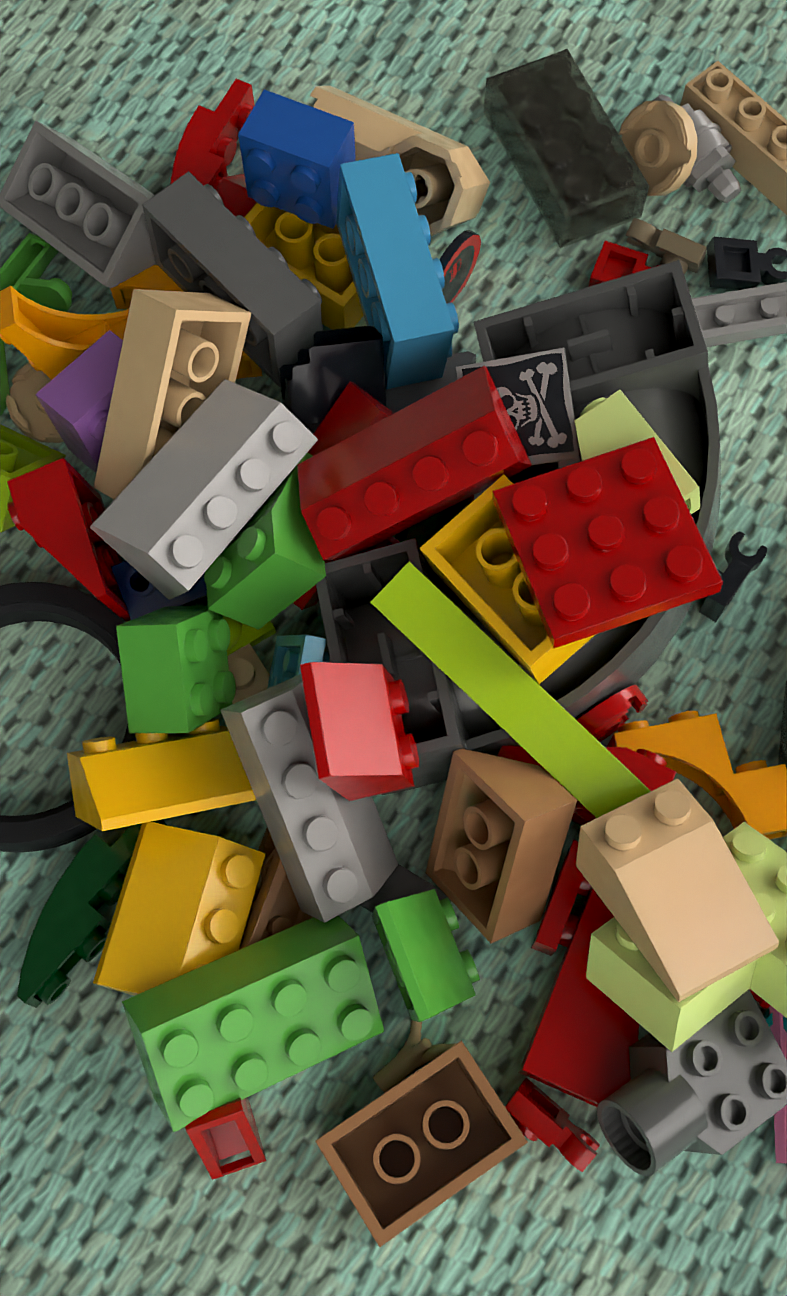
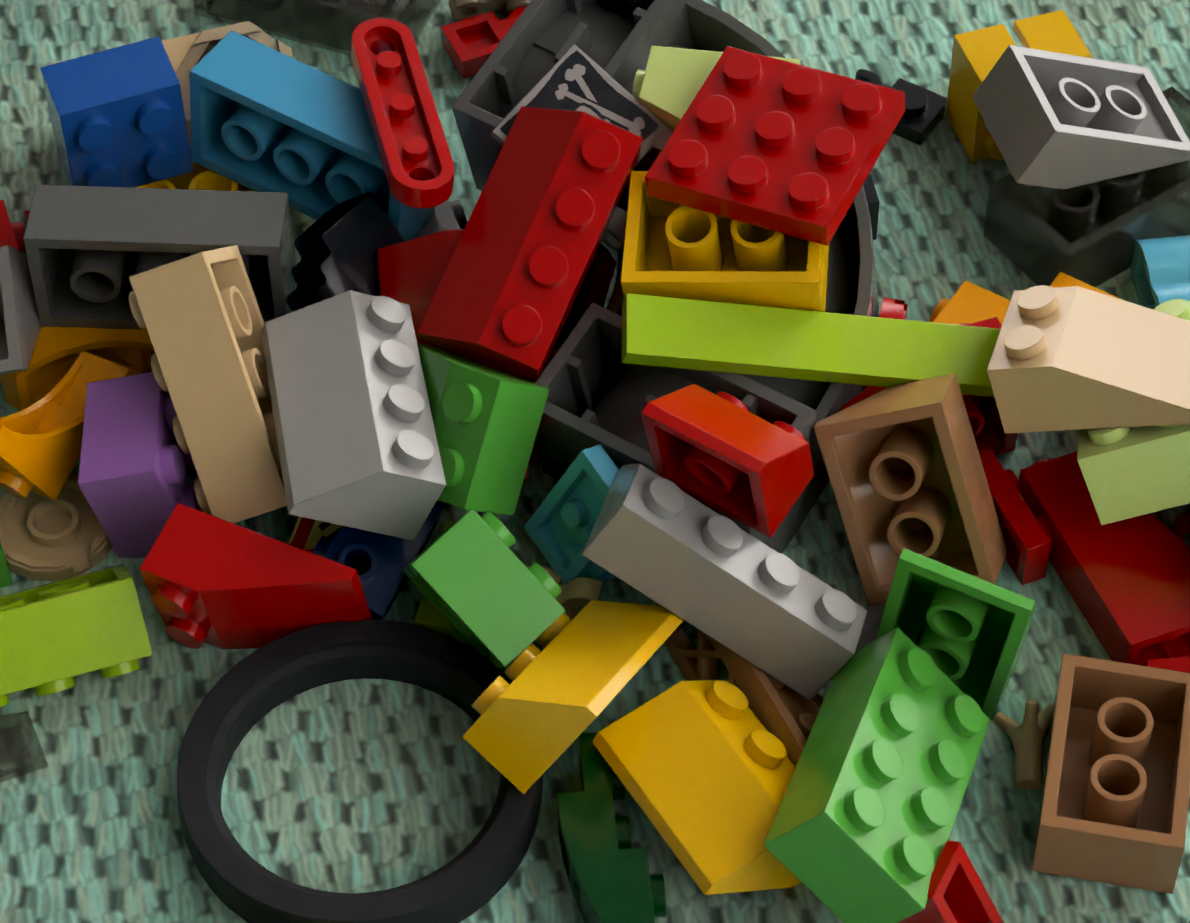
camera: 45 degrees left, 20 degrees down
(426, 302) = (402, 113): none -> red plate

